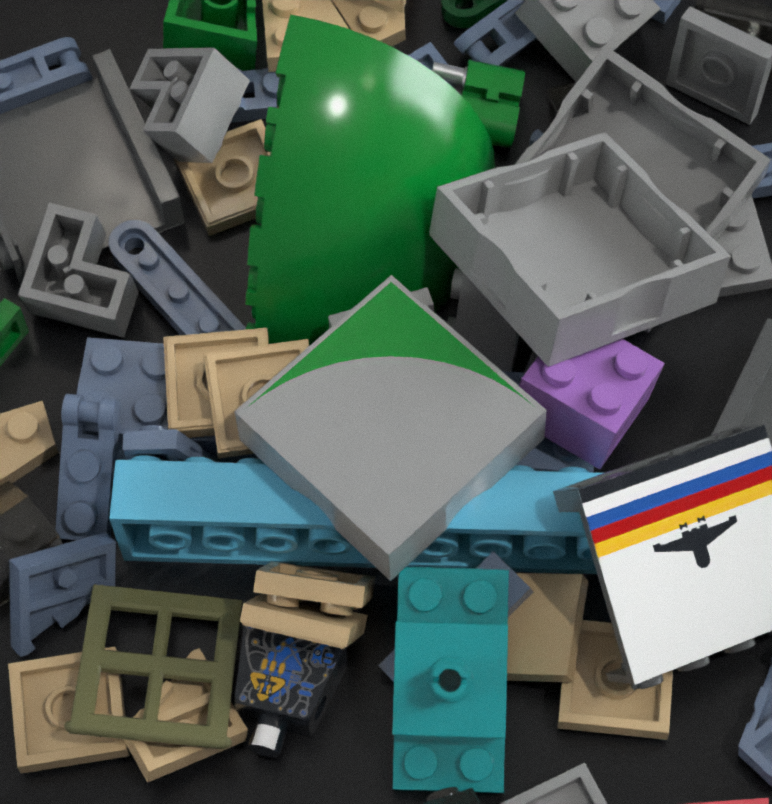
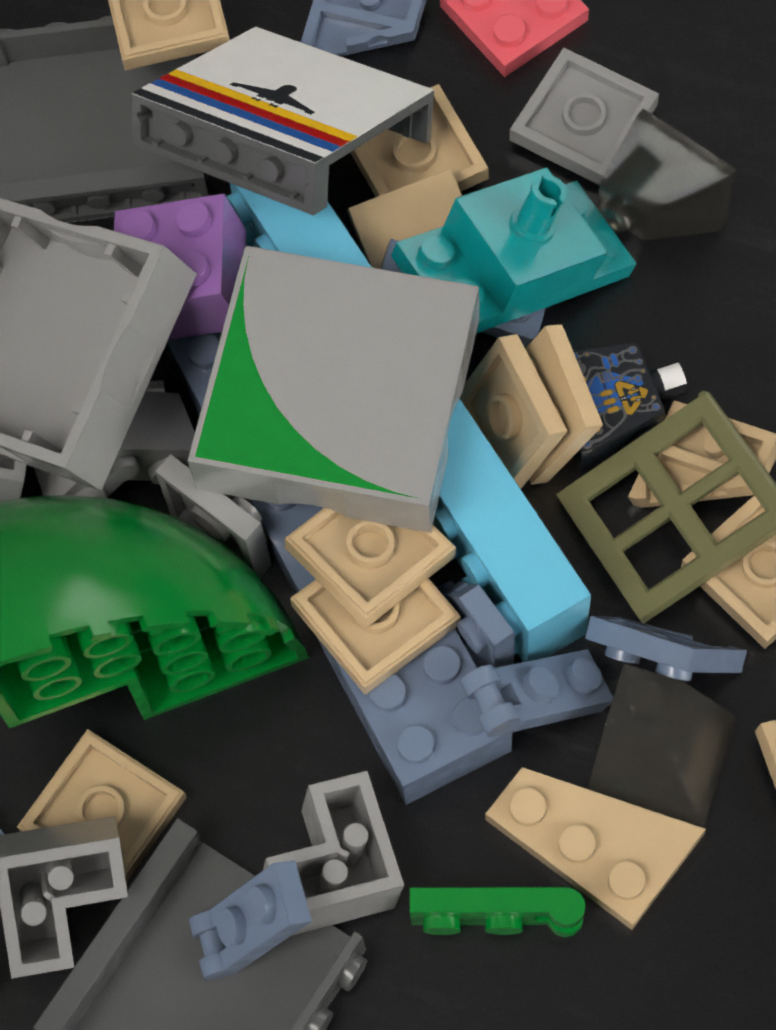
camera: 120 degrees left, 5 degrees up
(70, 190) = (251, 920): none -> sand blue plate
(169, 281) = (280, 761): sand blue plate -> none

